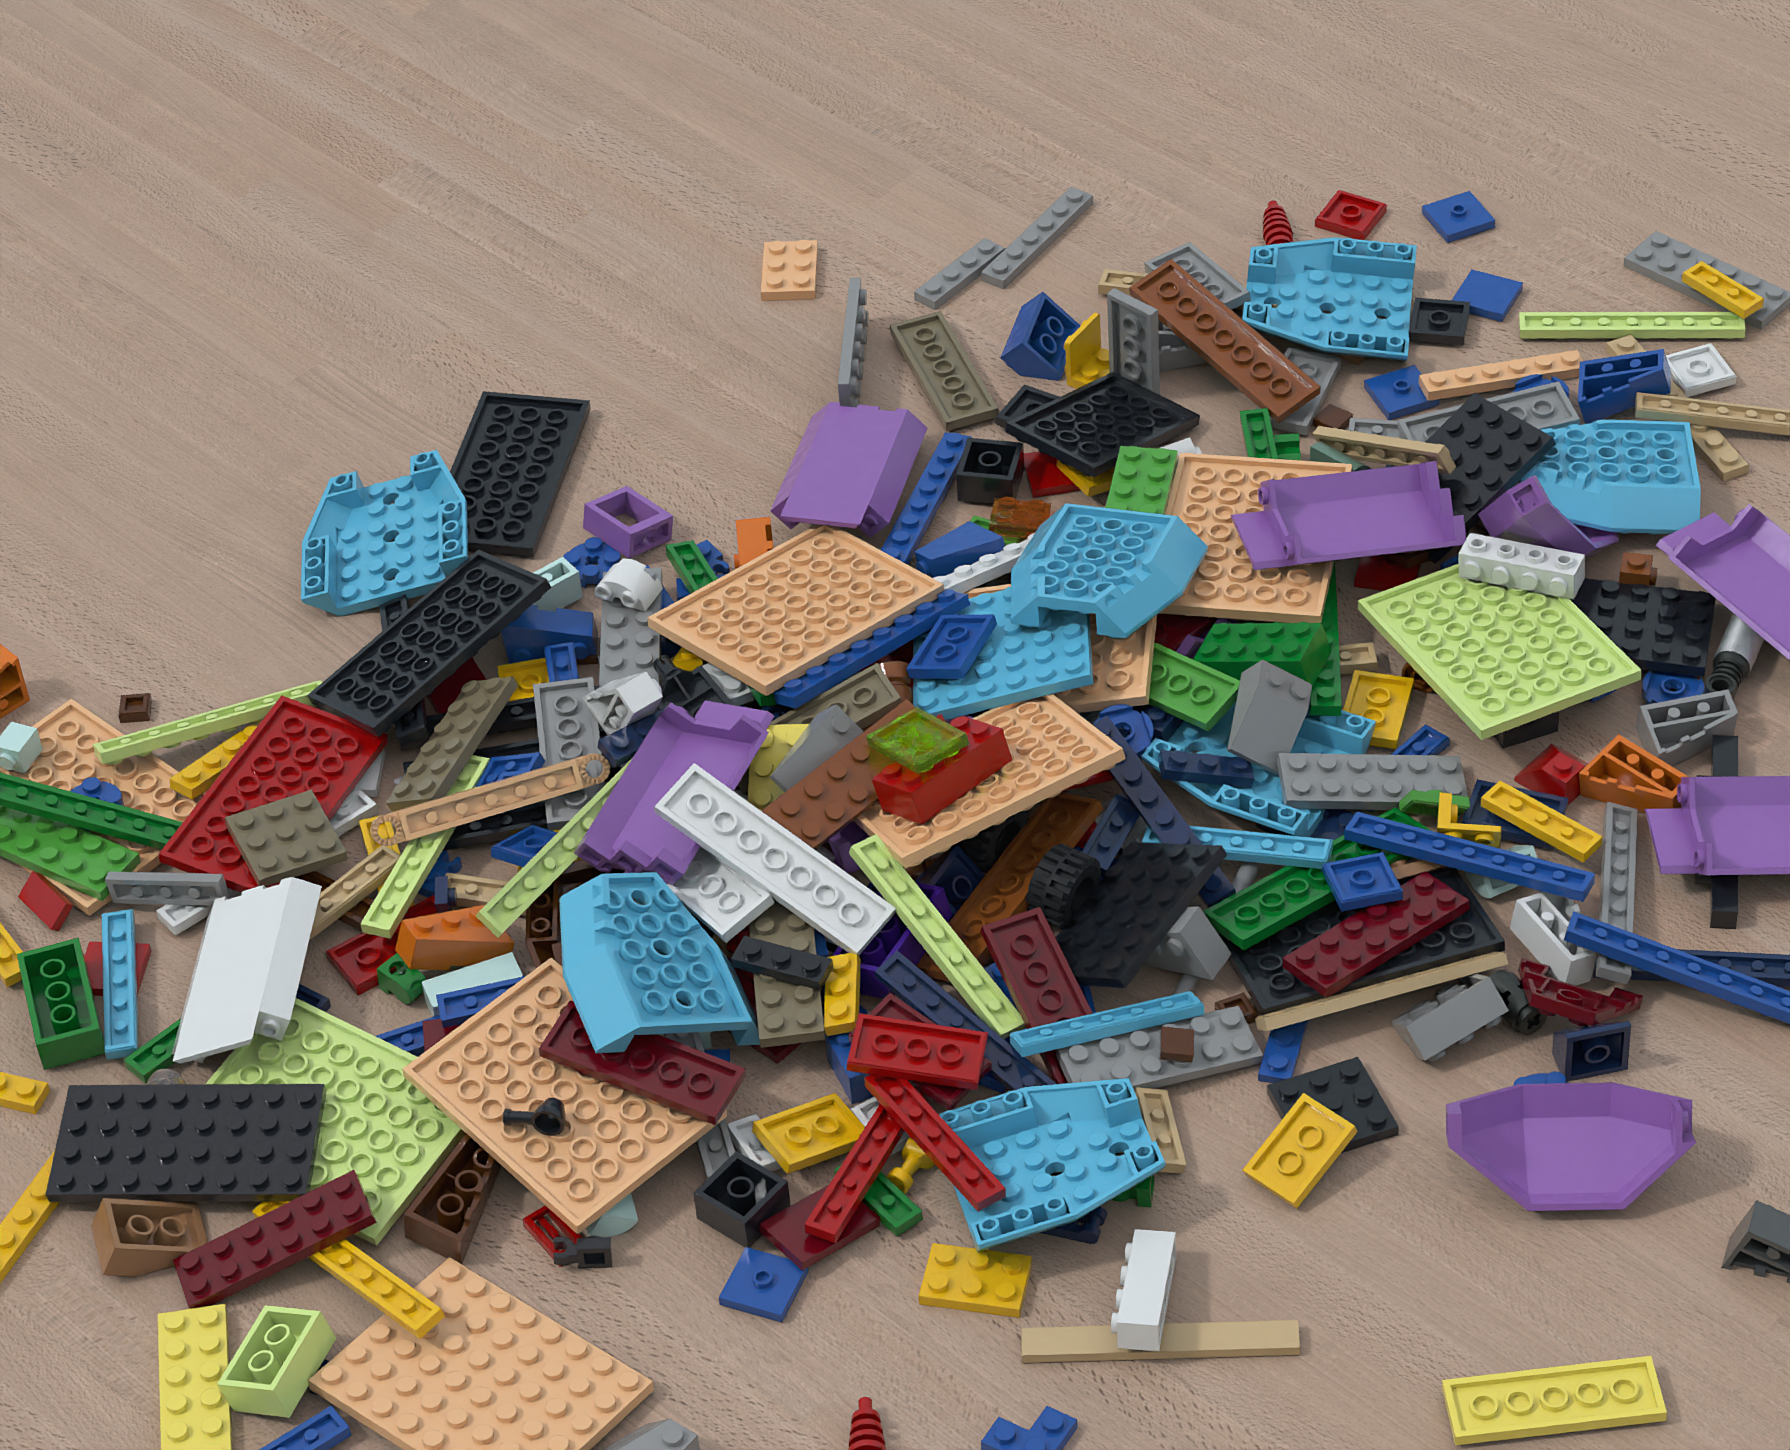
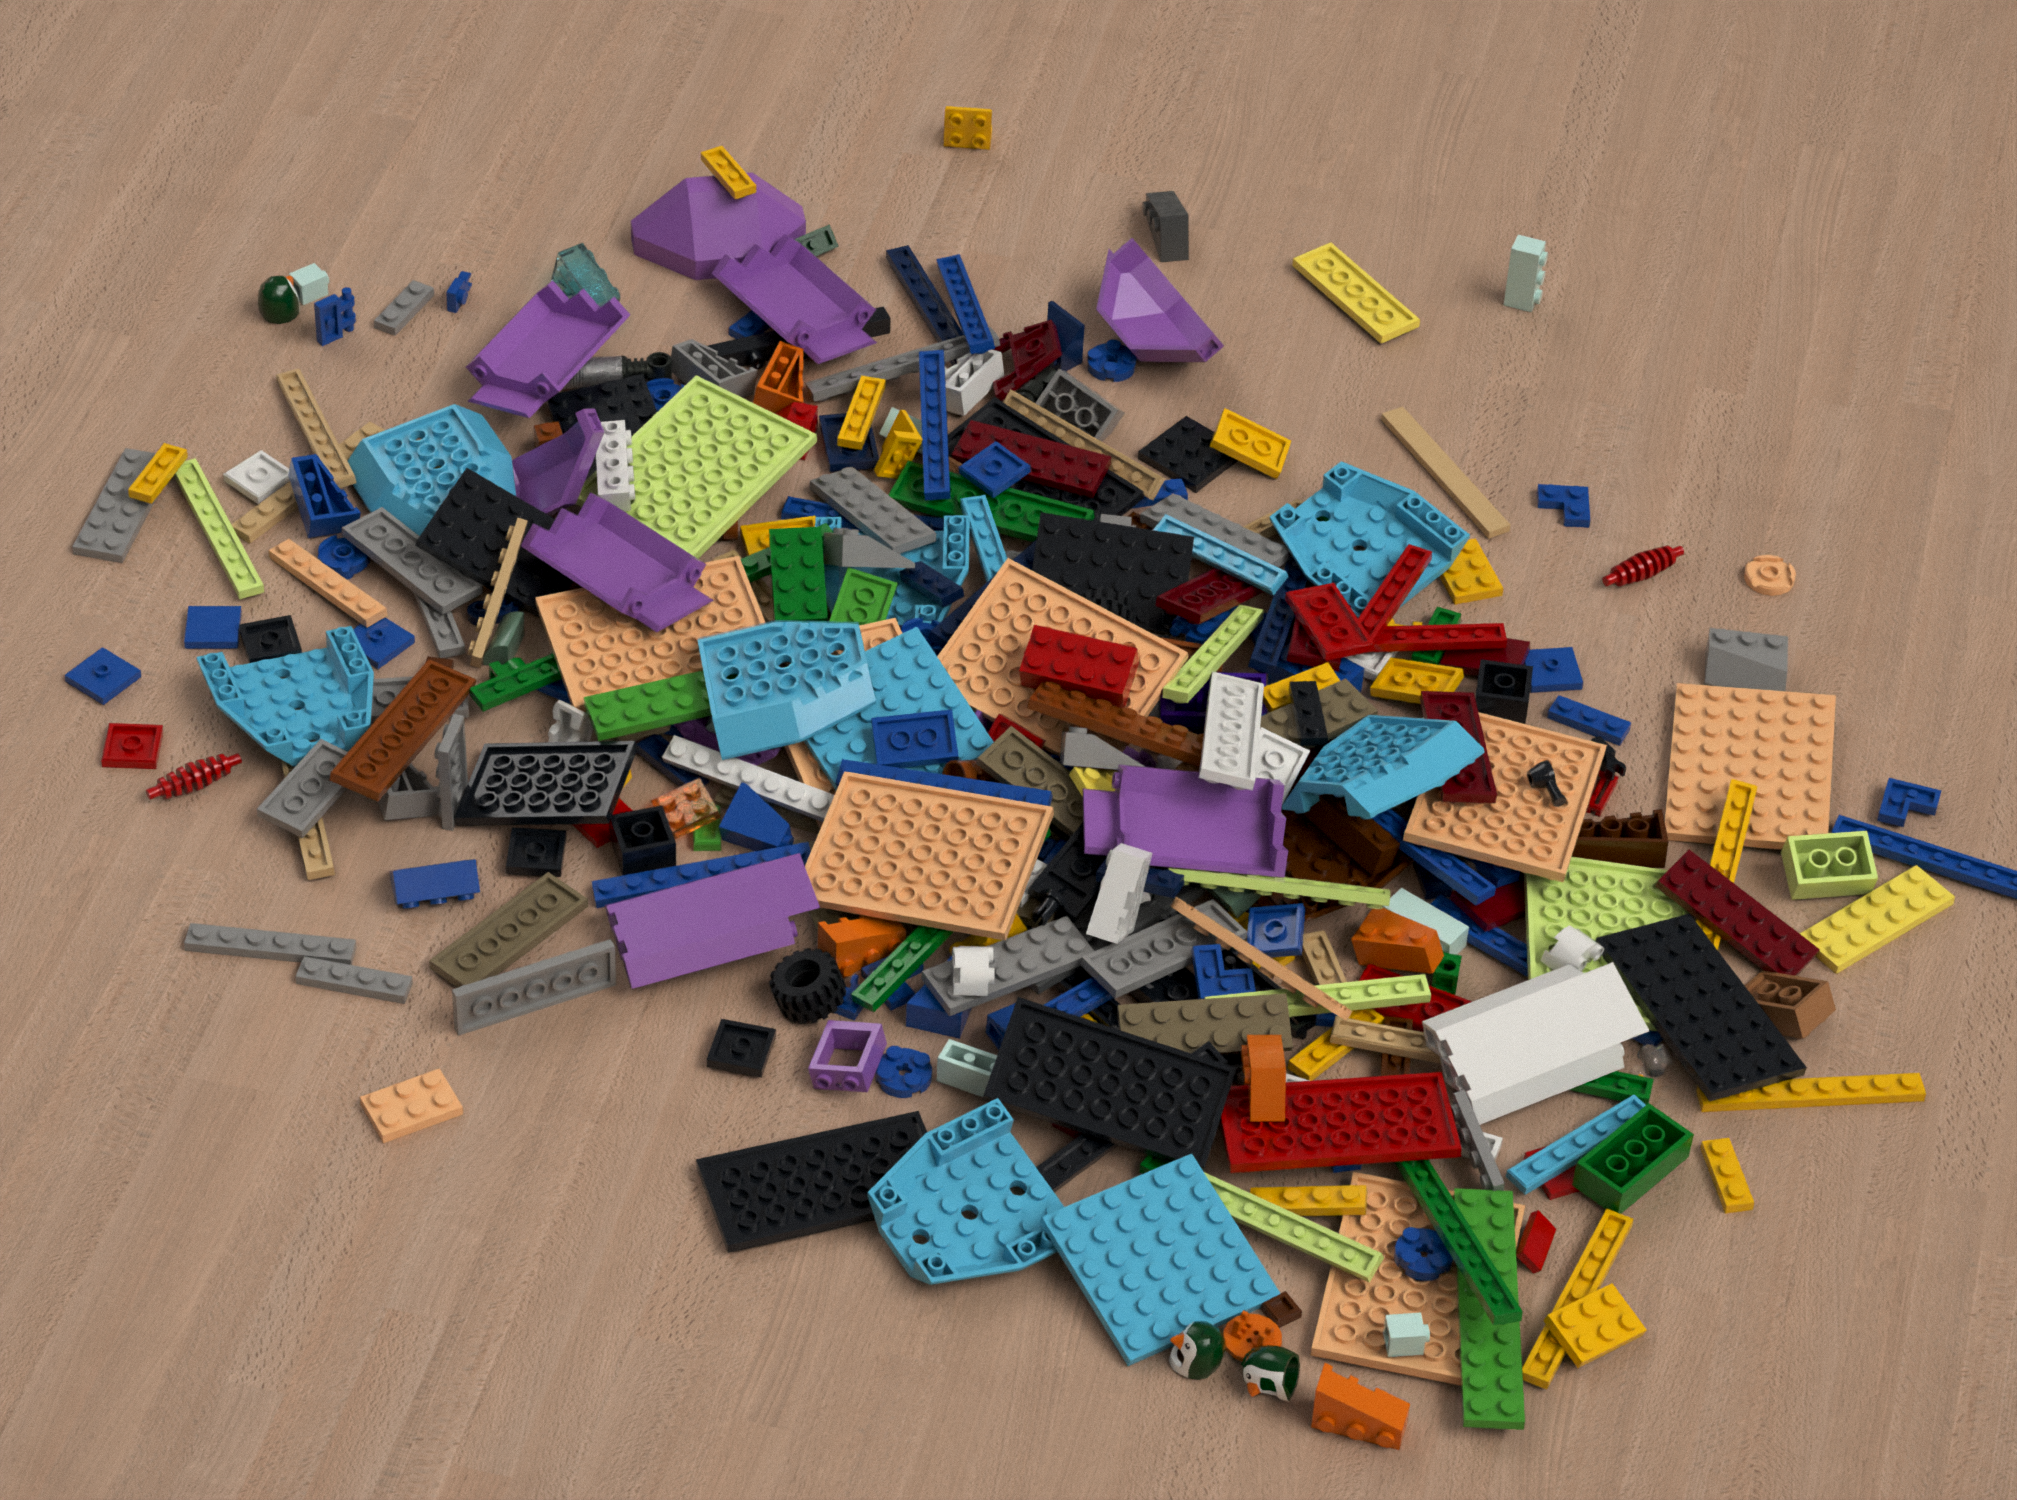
camera: 125 degrees left, 0 degrees up
(72, 656) = (1271, 1371): none -> dark green piece
(121, 674) = (1243, 1330): none -> orange plate
(131, 625) = (1202, 1350): none -> dark green piece
(238, 632) = (1159, 1257): none -> medium azure plate
(285, 838) = (1381, 1083): dark tan plate -> none
(321, 1056) = (1572, 949): none -> white cylinder
(356, 748) = (1265, 1076): none -> orange wedge
(444, 895) = (1359, 968): dark blue plate -> none
(663, 1281) = (1589, 720): none -> blue plate
(697, 469) = (741, 1048): none -> black plate
(715, 511) = (807, 986): none -> black tyre
(917, 740) = (1082, 662): clear neon green plate -> none
(1084, 354) = (447, 833): yellow bracket -> none
(1145, 1290) = (1431, 467): white brick -> none
(1177, 1044) = (1211, 516): reddish brown tile -> none
(1428, 803) = (878, 470): bright green plate -> none

